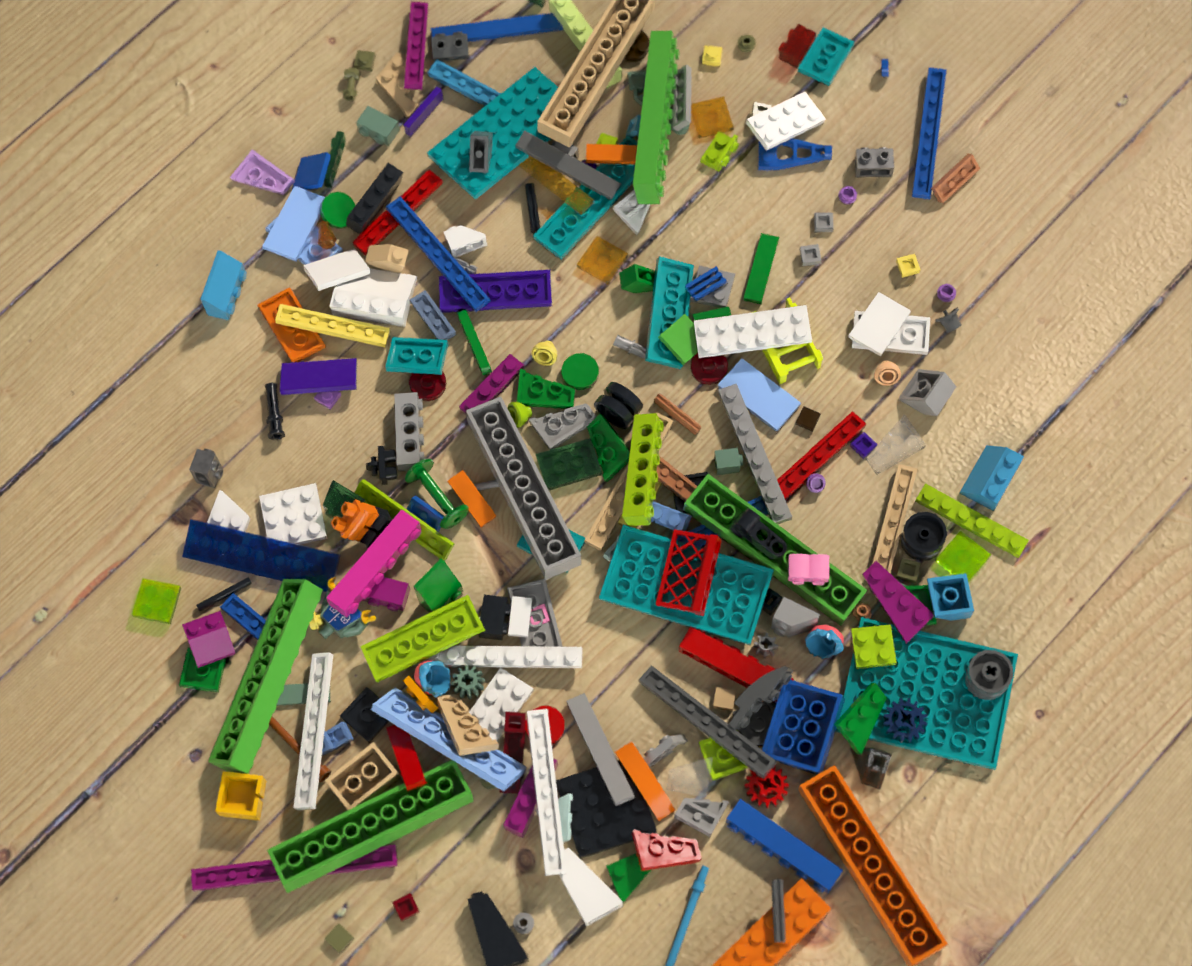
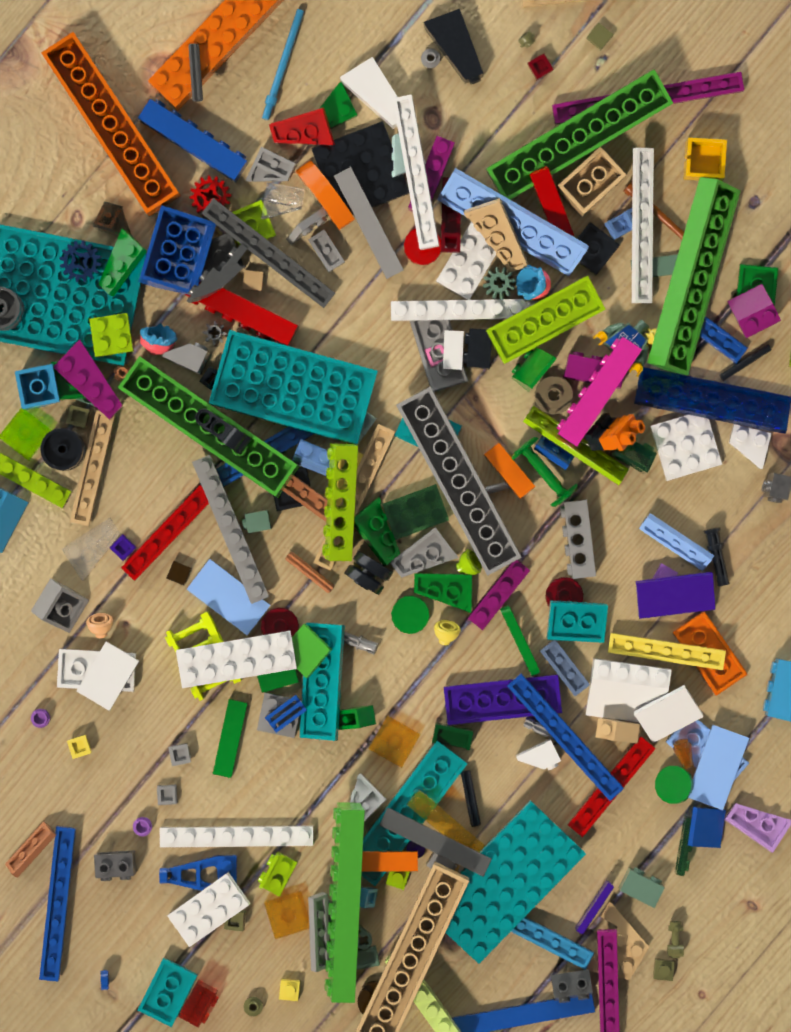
camera: 165 degrees right, 20 degrees up
(312, 425) = (676, 542): none -> light blue plate
(374, 198) = (636, 798): black brick -> none
(386, 473) = (598, 493): black hips -> none
(413, 561) = (564, 397): none -> dark tan plate
(418, 938) = (526, 39): none -> olive plate
(423, 700) = (539, 258): light orange plate -> none
(480, 151) = (528, 850): dark grey slope -> none
(543, 261) = (452, 735): none -> dark green panel
(646, 724) = (326, 251): none -> light grey plate
(705, 575) = (274, 392): red fence -> none
(758, 184) = (236, 836): none -> white plate
(808, 568) = (174, 401): bright pink brick -> none
(815, 483) = (169, 503): medium lavender plate -> none
(950, 320) = (37, 685): dark grey piece -> none

